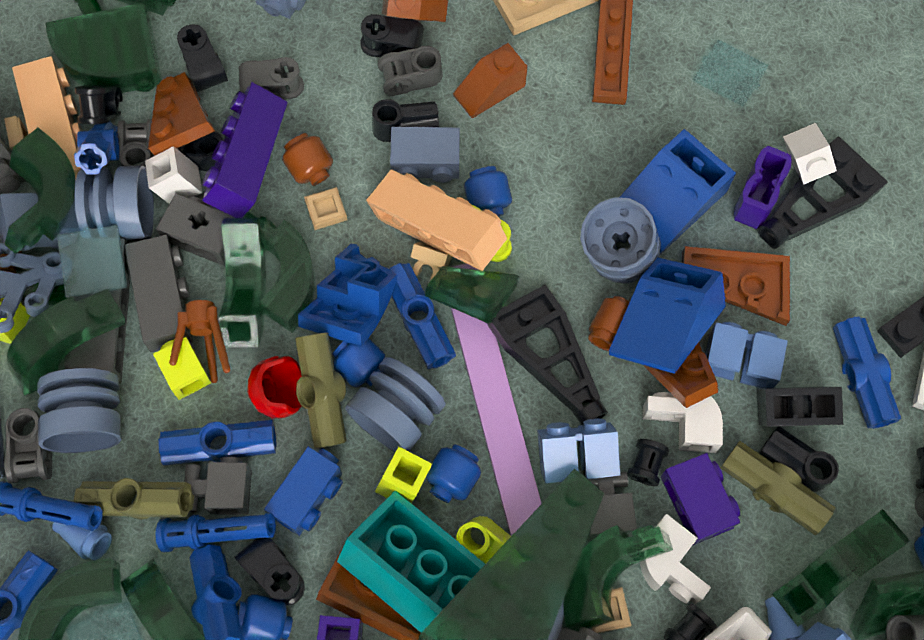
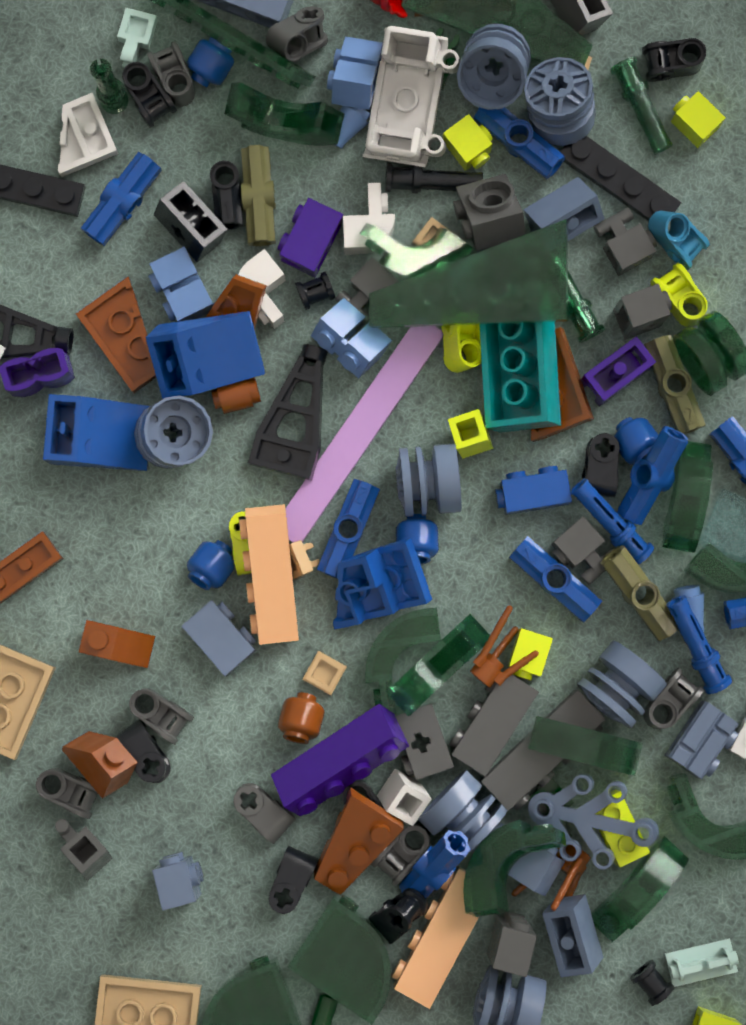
camera: 130 degrees left, 15 degrees up
(15, 130) = (475, 948): tan tile -> none
(92, 261) = (519, 781): clear light blue piece -> none
(274, 386) = (482, 573): red hat -> none
(320, 390) = (462, 541): olive piece -> none
(402, 115) = (202, 676): black piece -> none
(453, 473) = (436, 406): blue head -> none
(472, 291) = (304, 503): clear green wing -> none

